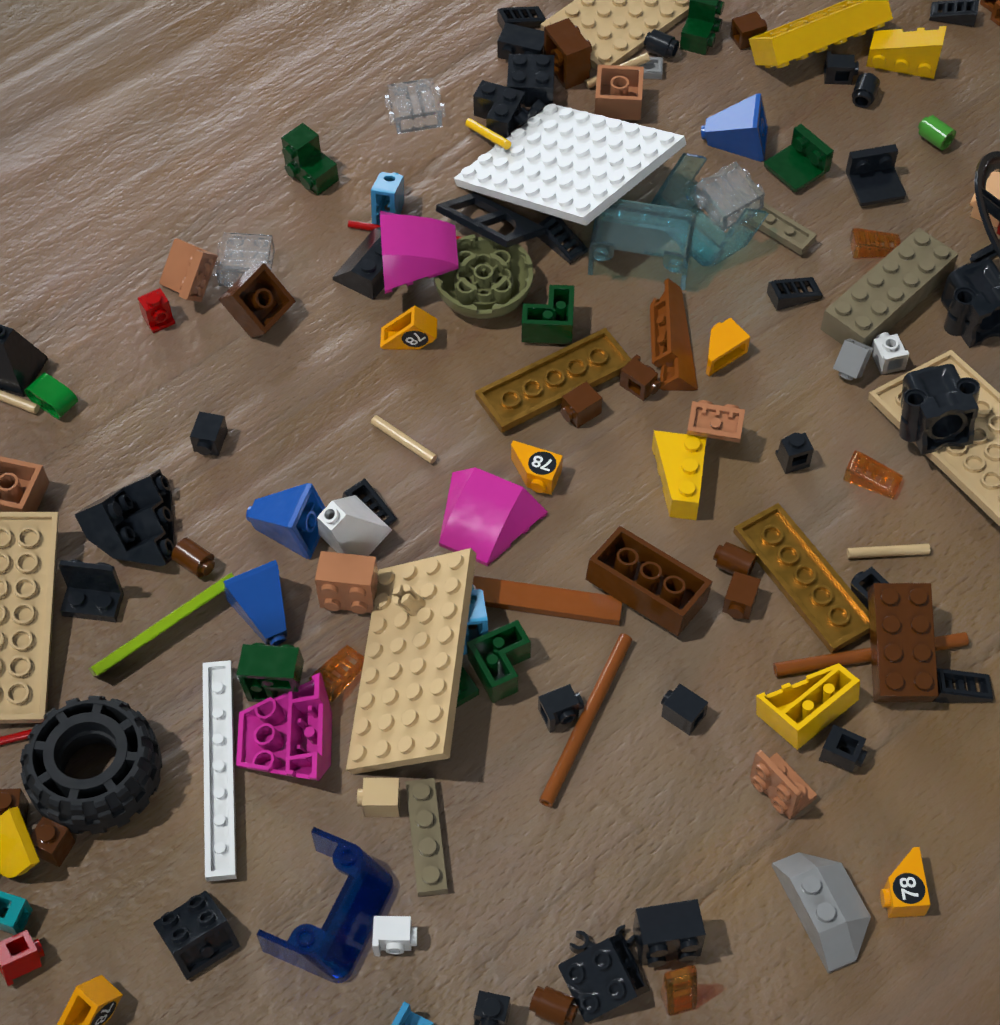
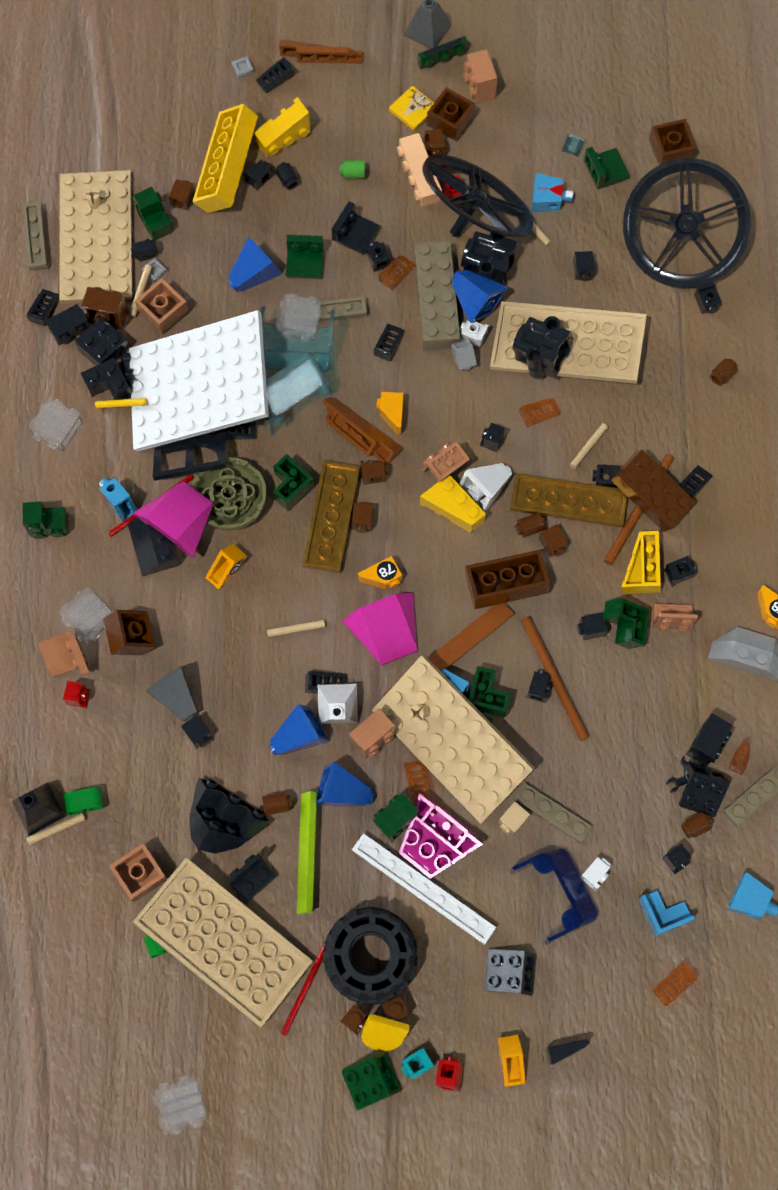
camera: 50 degrees left, 15 degrees up
(230, 381) = (174, 694): none -> dark grey slope
(729, 735) = (630, 622): none -> dark green brick
(733, 483) = (485, 483): none -> white slope
(874, 211) = (378, 256): none -> black brick
(928, 319) = (477, 294): none -> blue slope

